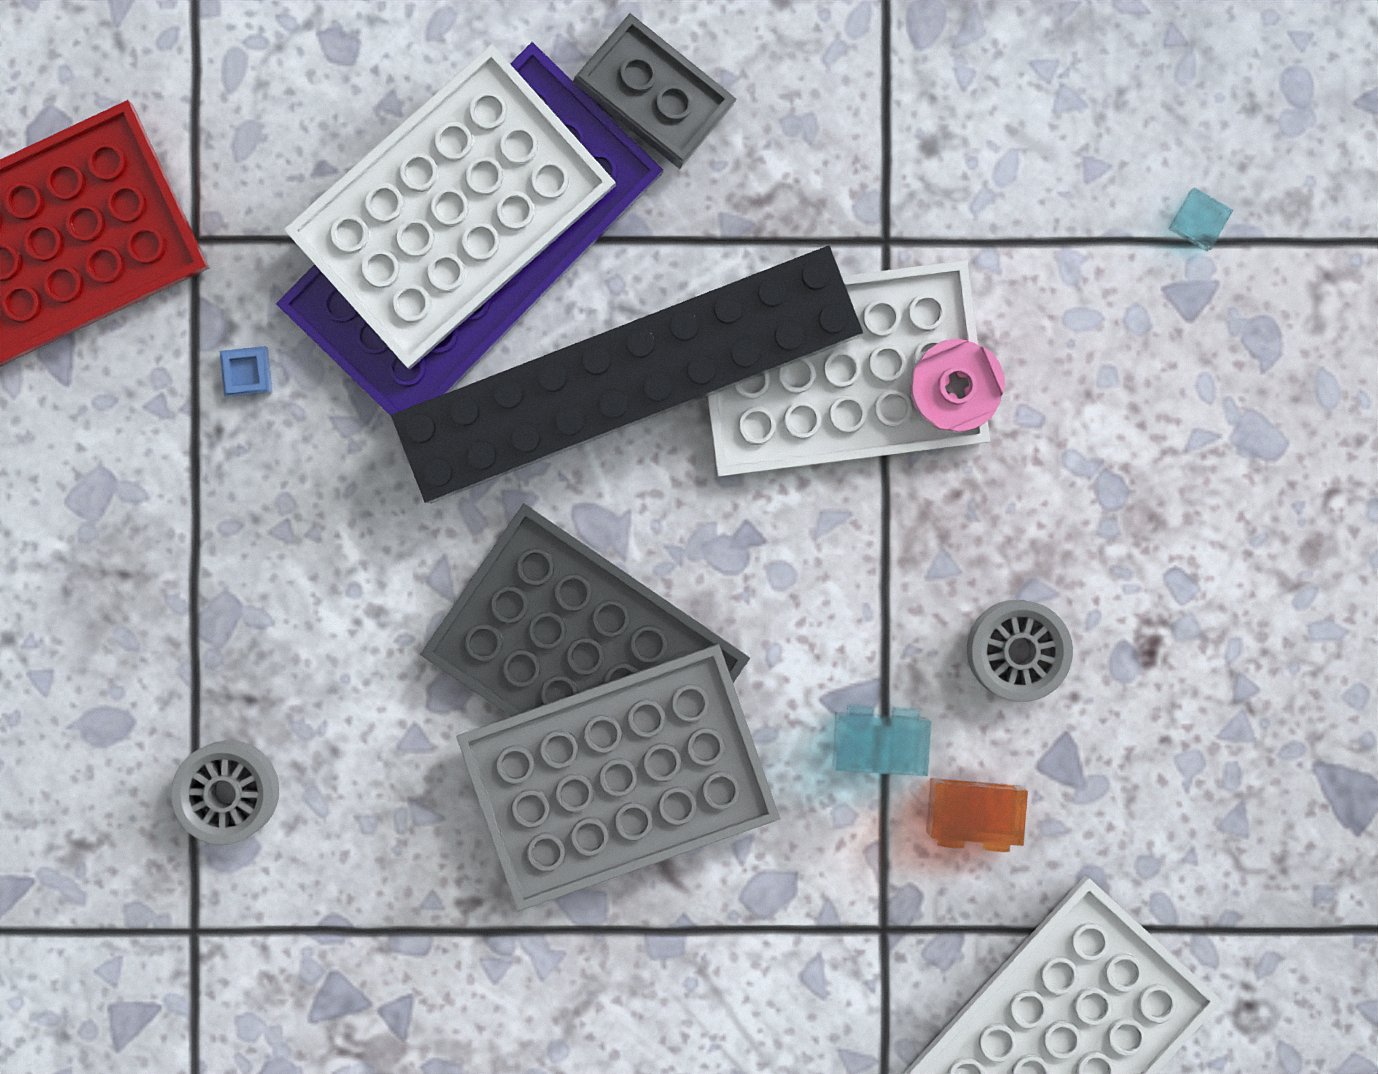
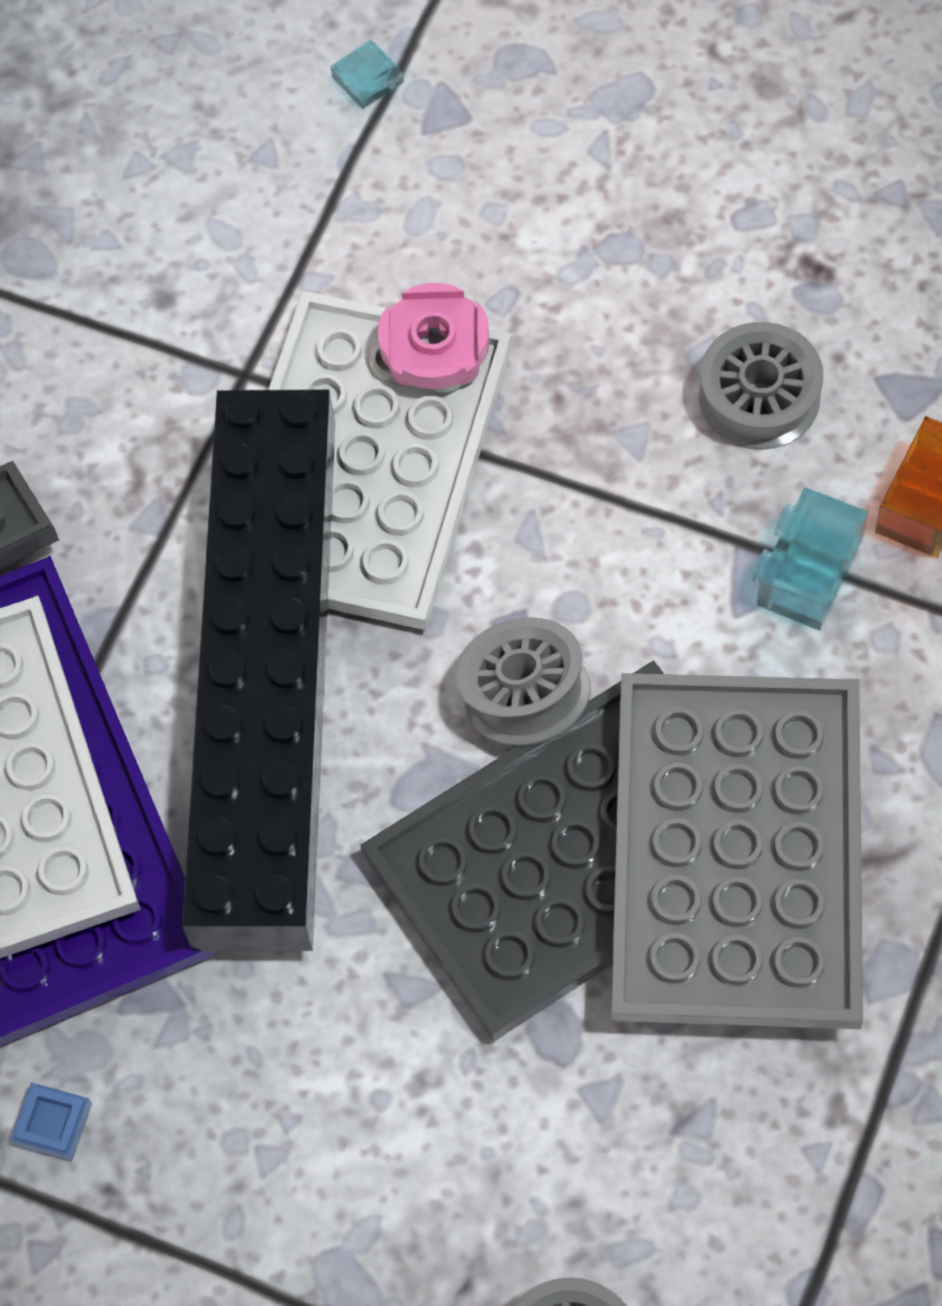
camera: 65 degrees left, 25 degrees down
(703, 532) = (523, 681): none -> light grey wheel

